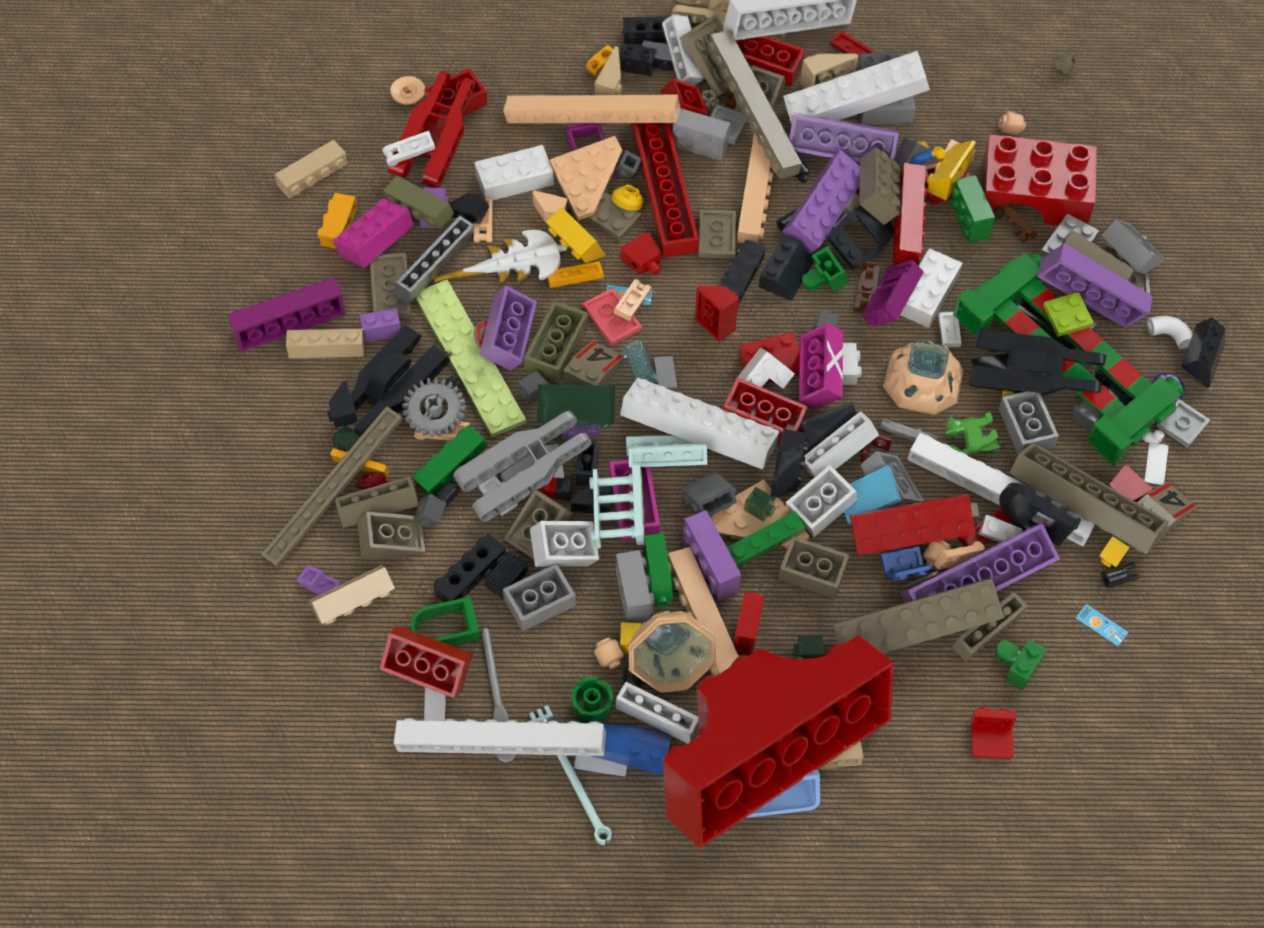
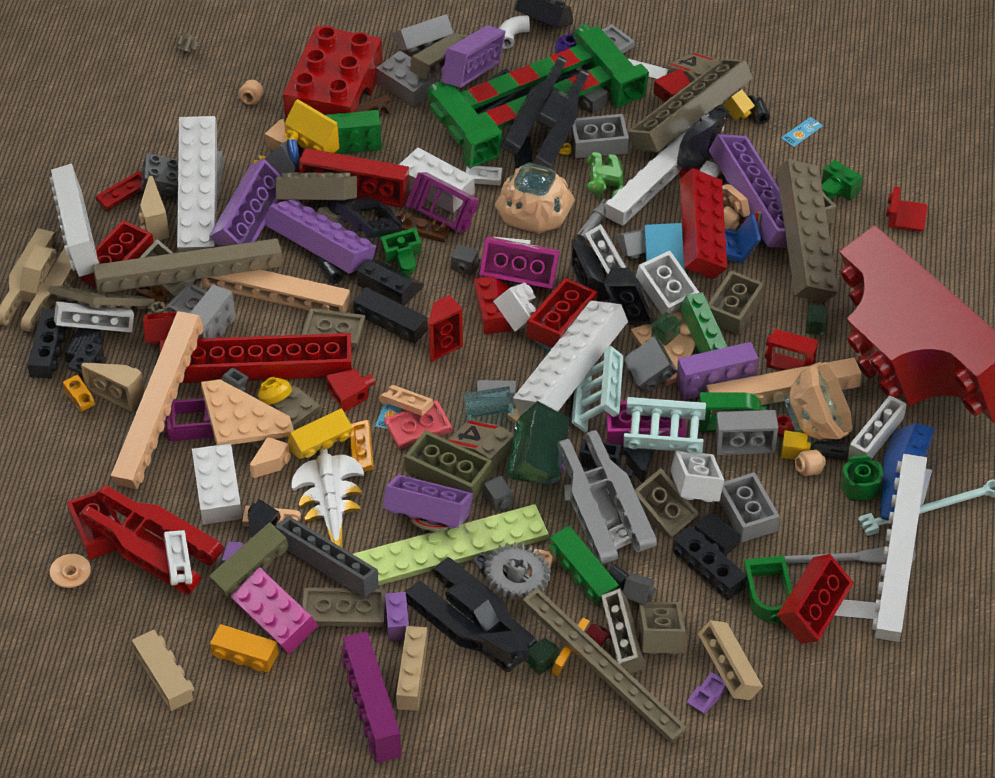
camera: 80 degrees left, 10 degrees down
(1068, 314) = (499, 79): lime plate -> none

